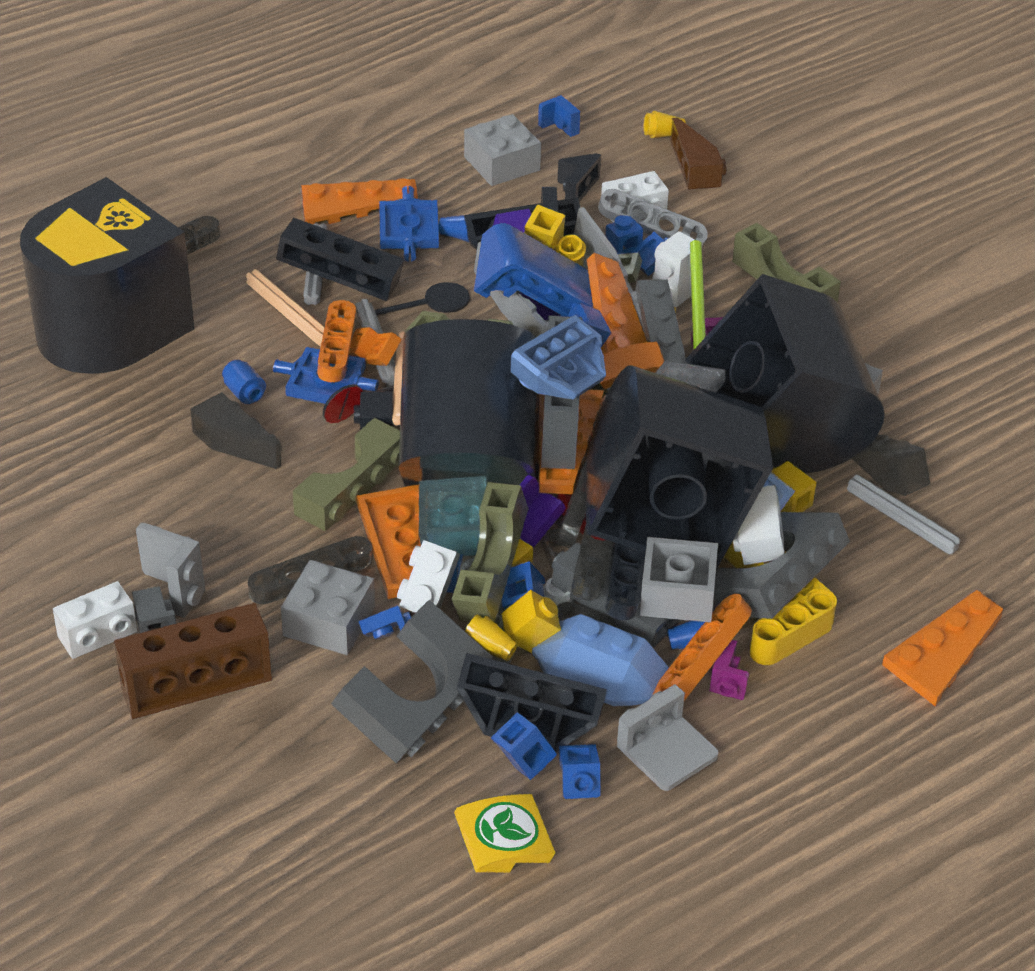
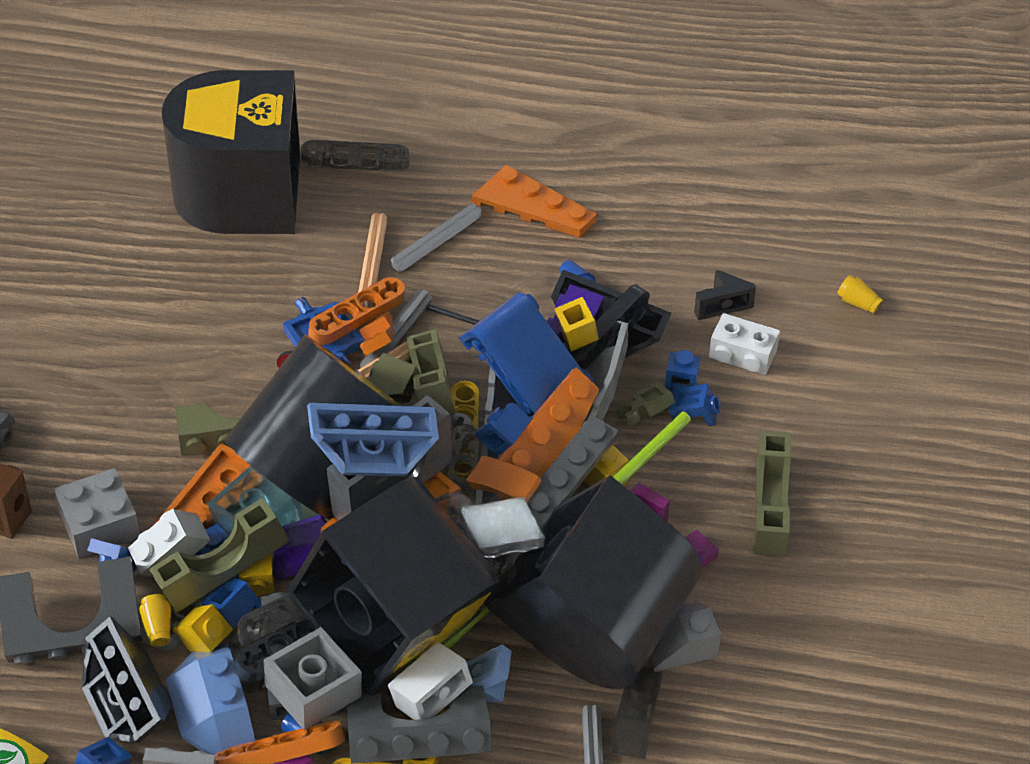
camera: 45 degrees right, 5 degrees up
(175, 561) = (30, 414): light grey bracket -> none
(233, 432) = (208, 331): clear smoke slope -> none
(243, 381) = (263, 299): blue brick -> none
(339, 259) = (443, 245): black brick -> none
(349, 554) = (132, 472): clear smoke beam -> none
(409, 224) = (540, 249): blue plate -> none
(502, 149) = (692, 232): light grey brick -> none
(524, 746) = (76, 717): blue brick -> none
(559, 112) = (781, 226): blue bracket -> none
(572, 248) = (590, 357): yellow cone -> none
(654, 215) = (724, 373): light grey beam -> none
(674, 264) = (687, 443): white brick -> none
(696, 157) = (841, 346): reddish brown slope -> none
(802, 485) = (526, 676): yellow brick -> none

